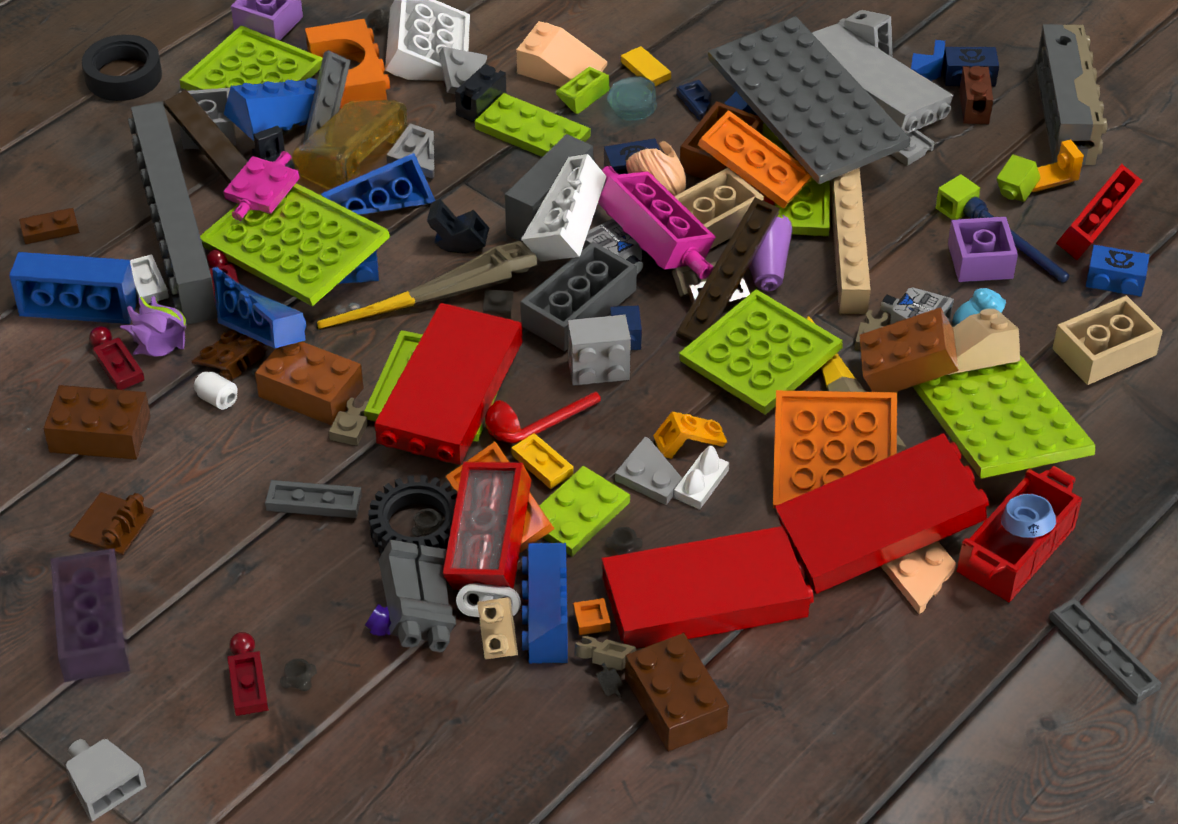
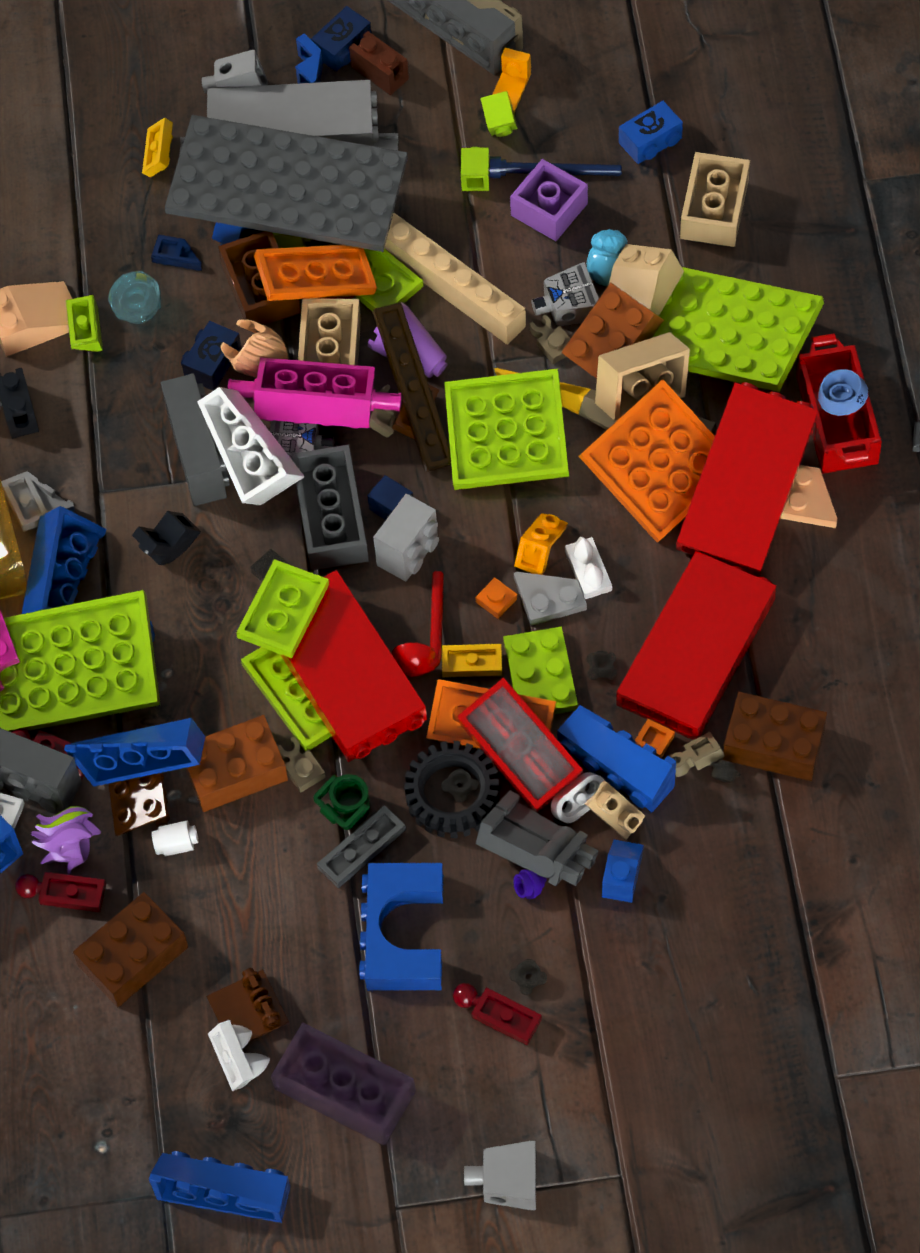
camera: 45 degrees left, 15 degrees up
(69, 524) = (238, 1066): none -> white tile
(287, 536) = (386, 889): none -> blue arch
(342, 458) = (348, 800): none -> dark green piece
(451, 671) = (622, 871): none -> blue slope
(452, 309) = (282, 608): none -> lime plate
(484, 271) = (229, 553): dark tan plate -> none
(527, 125) = (90, 396): lime plate -> none
(613, 442) = (496, 598): none -> orange plate
(645, 65) = (100, 259): yellow tile -> none
(916, 384) = (635, 369): none -> tan brick
(1099, 212) = (587, 92): red brick -> none

